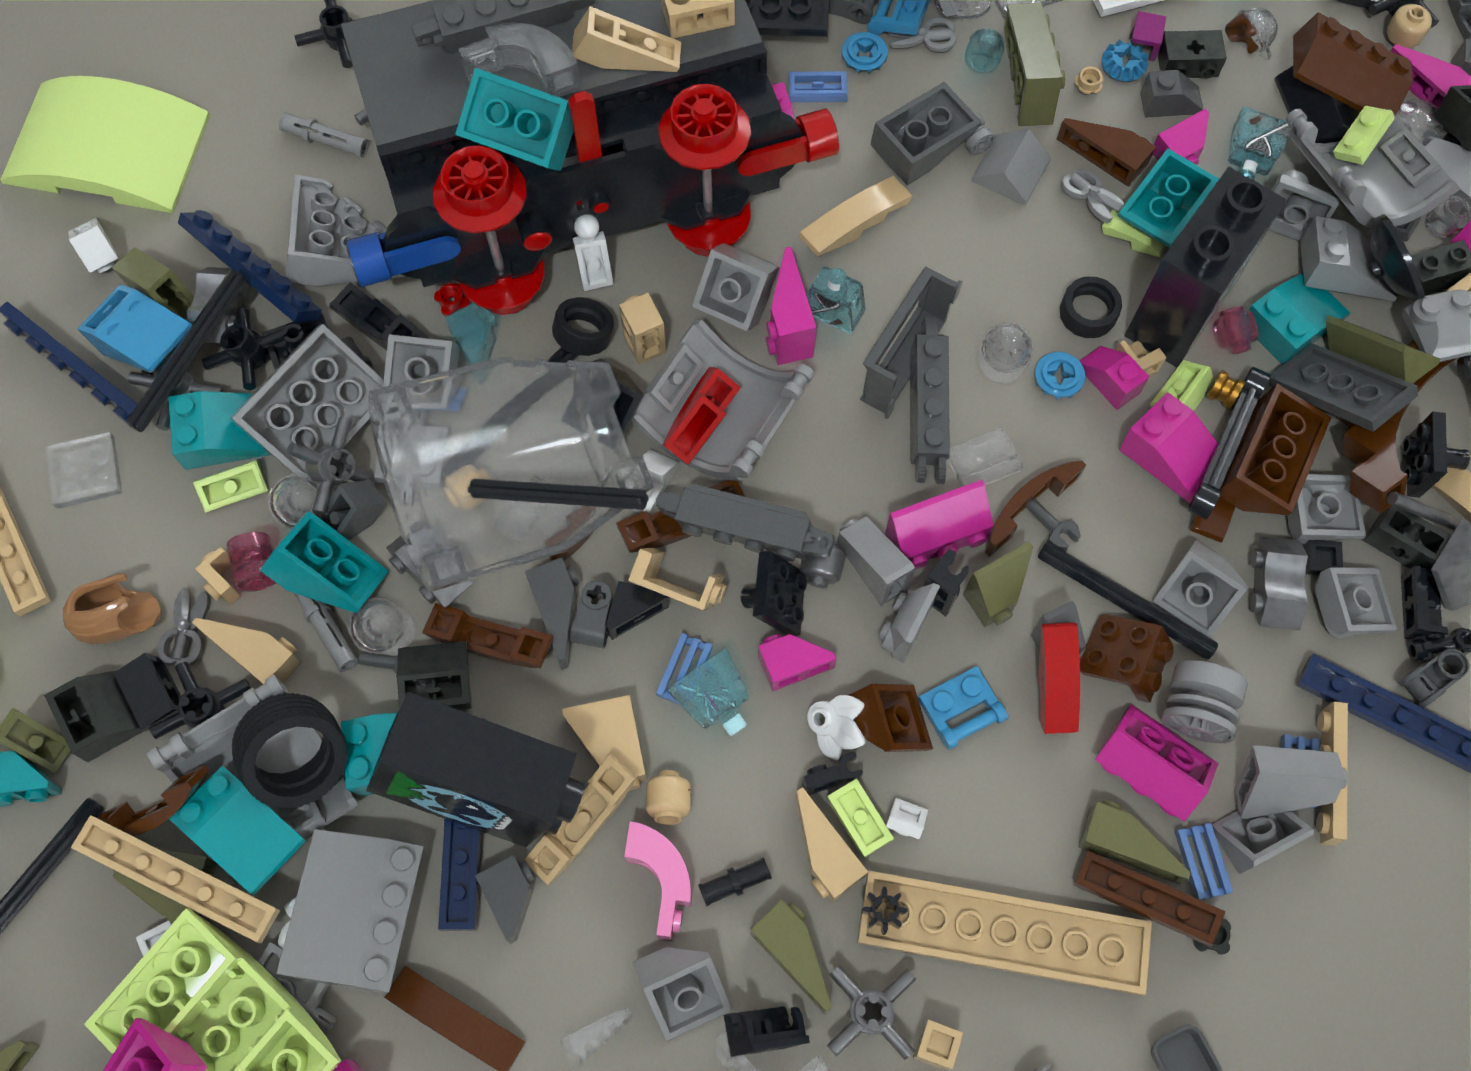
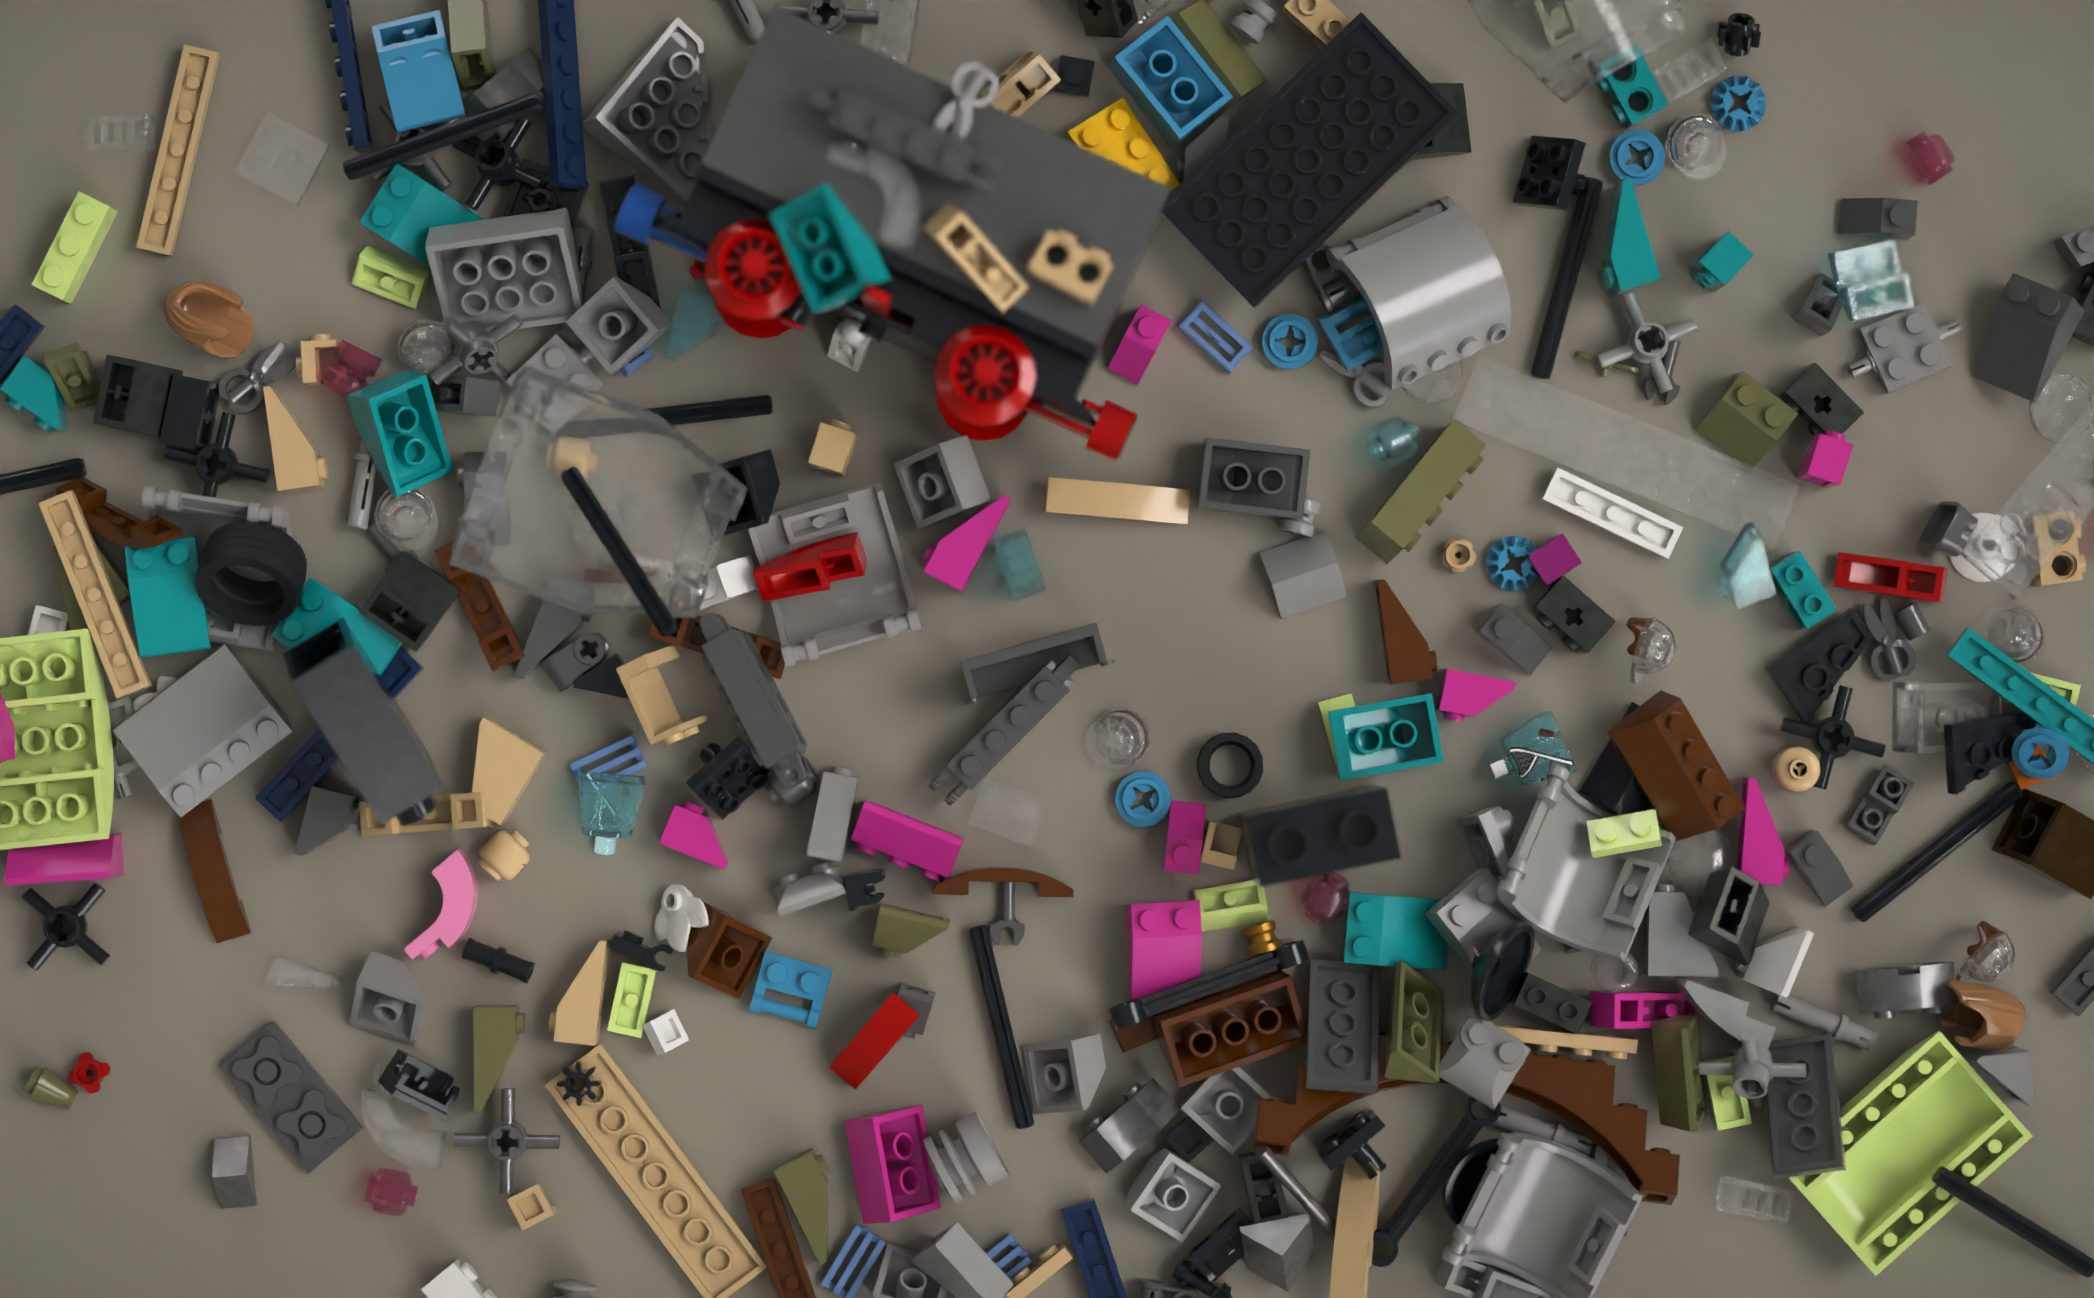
camera: 45 degrees right, 20 degrees up
(589, 311) = (813, 390): black tyre -> none
(1094, 193) = (1343, 670): light grey piece -> none
(1128, 654) = (953, 1068): reddish brown bracket -> none

